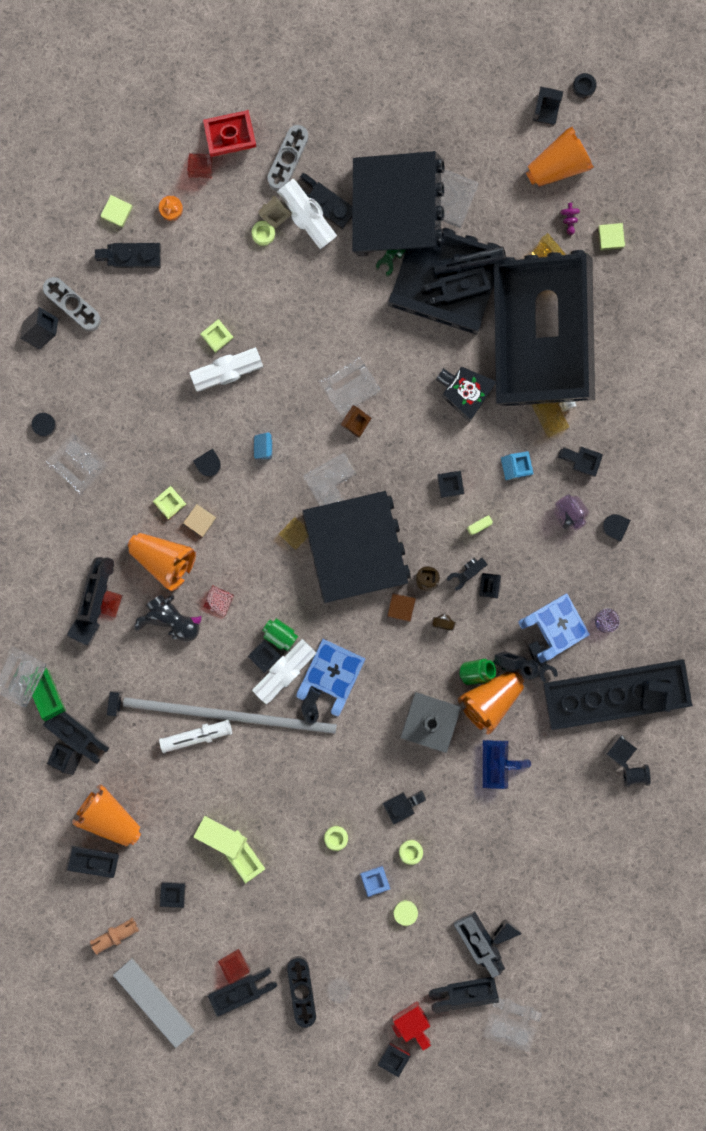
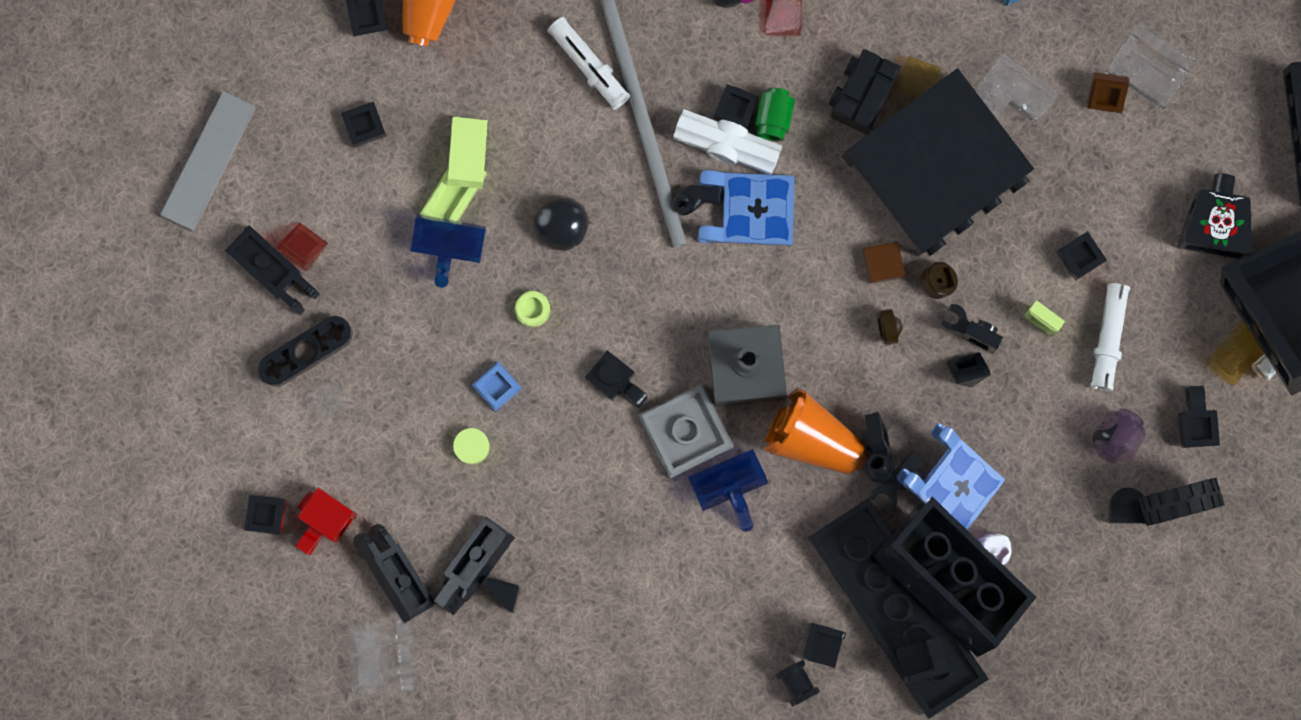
camera: 70 degrees right, 5 degrees down
(114, 936) = (276, 70): nougat pin -> none
(271, 873) = (447, 241): none -> clear blue plate
(289, 571) = (864, 91): none -> black brick
(290, 796) = (562, 223): none -> black hair
(410, 852) = (557, 418): yellowish green tile -> none
(453, 775) = (686, 431): none -> light grey tile
(477, 671) = (843, 399): green brick -> none
(507, 489) = (1110, 336): none -> white pin
(517, 465) = (1148, 336): dark azure slope -> none
(616, 653) = (955, 577): none -> black brick
(629, 495) = (1181, 501): none -> black tyre

